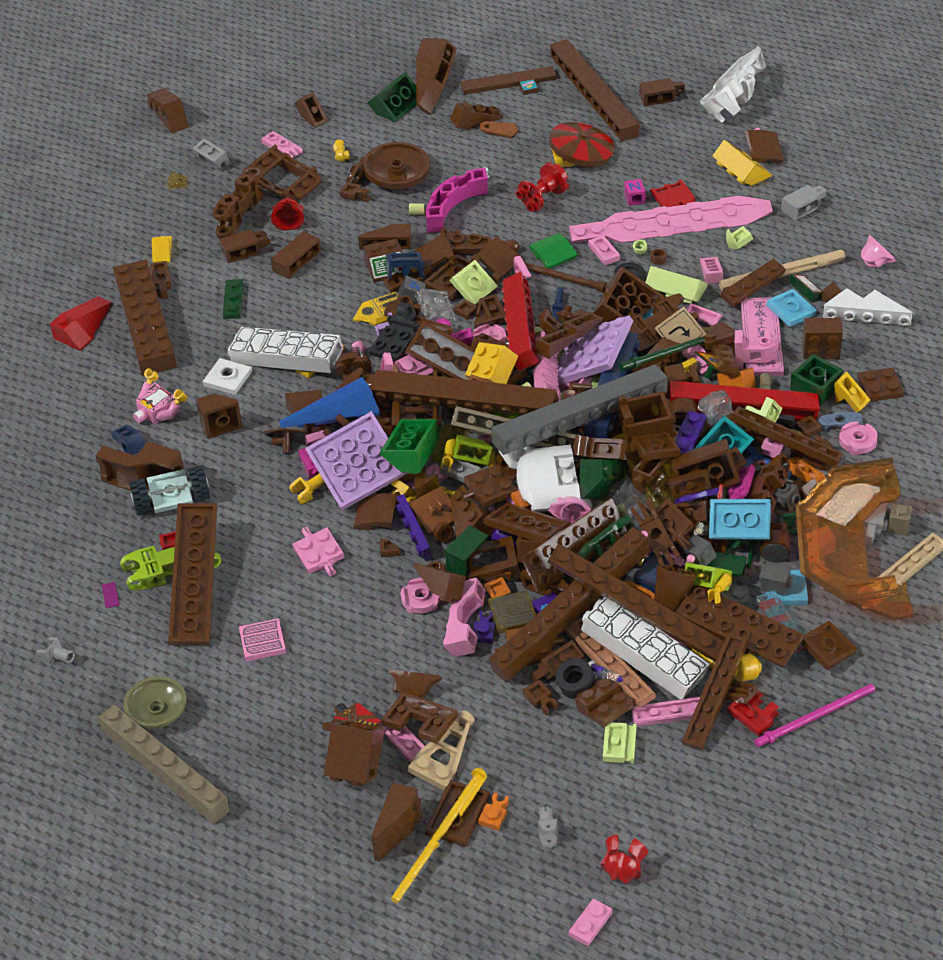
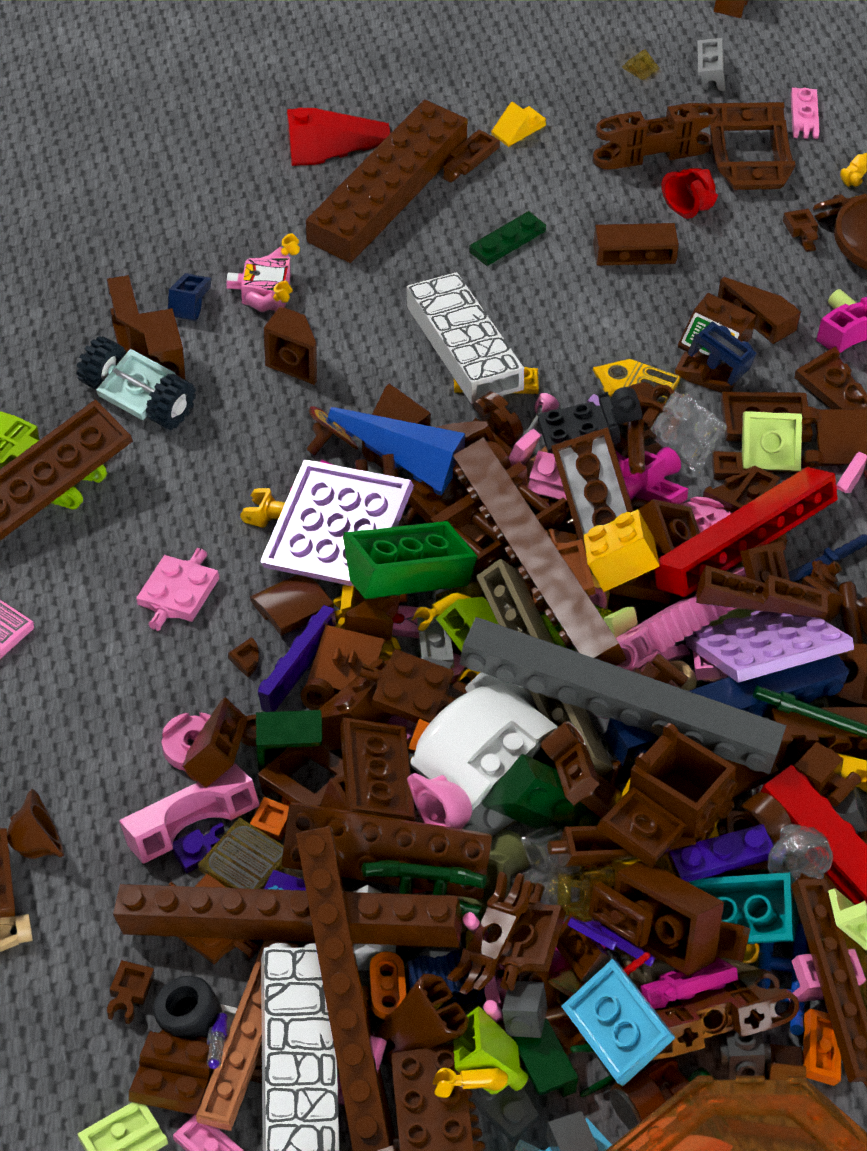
camera: 45 degrees right, 5 degrees up
(231, 383) = (372, 327): white piece -> none
(243, 244) = (599, 187): reddish brown hinge -> none
(314, 437) = (349, 459): bright pink plate -> none
(410, 287) = (695, 384): dark grey brick -> none
(435, 253) = (783, 370): reddish brown flag -> none
(548, 666) = (219, 971): reddish brown hinge -> none

